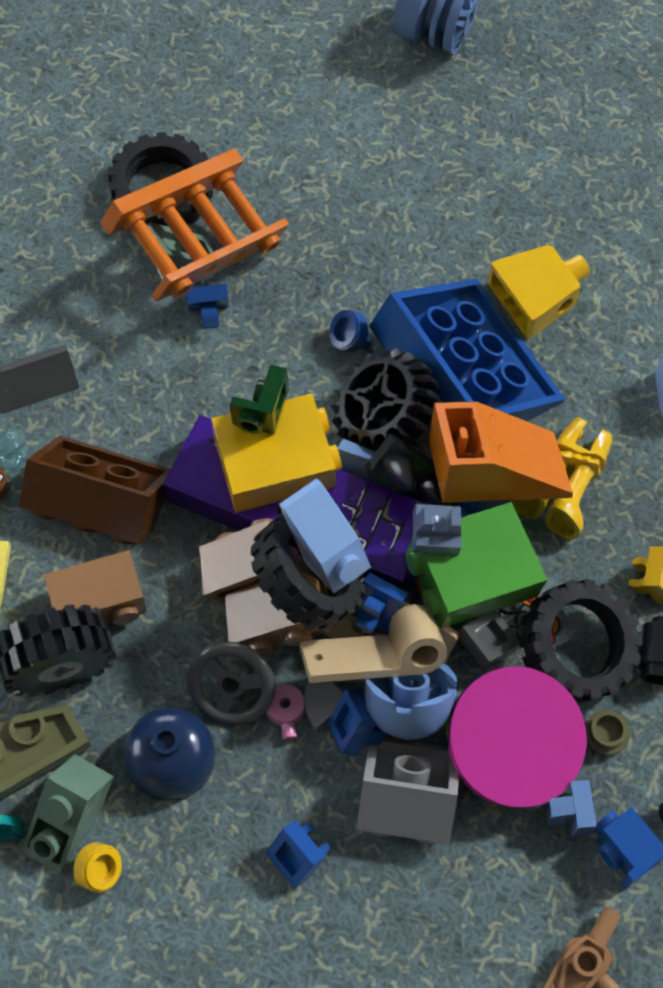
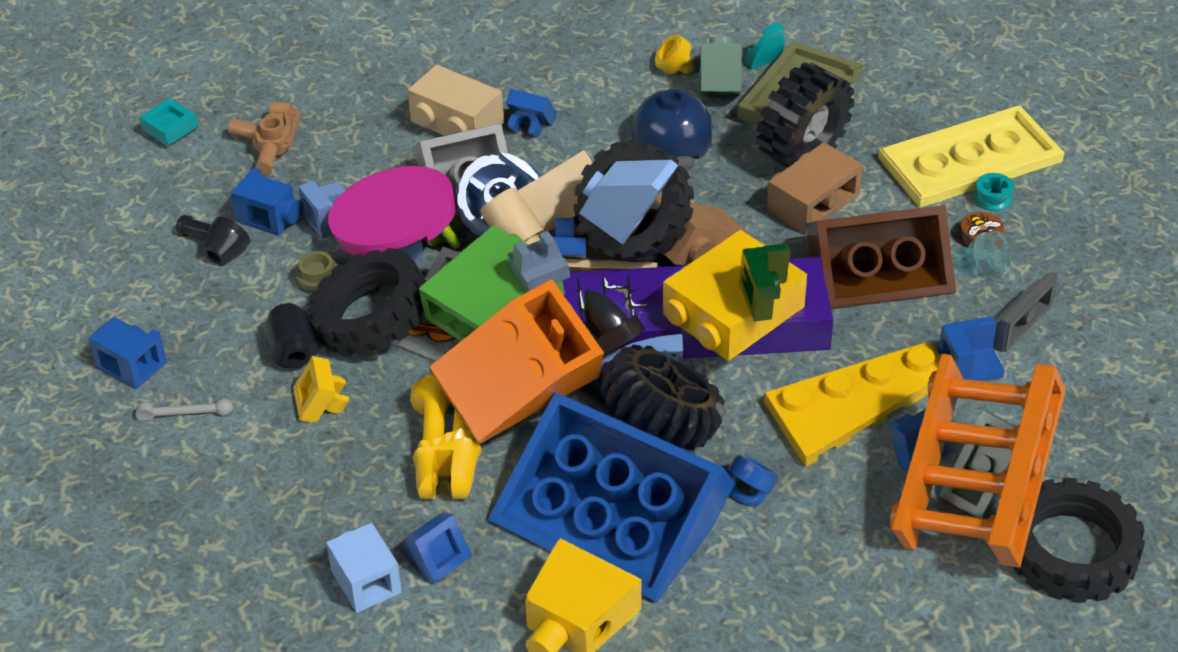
camera: 155 degrees right, 20 degrees down
(105, 361) = (972, 348): none -> blue panel
(212, 368) = (840, 403): none -> yellow wing
(378, 888) = (453, 102): none -> tan brick
(615, 379) = (437, 547): none -> blue tile

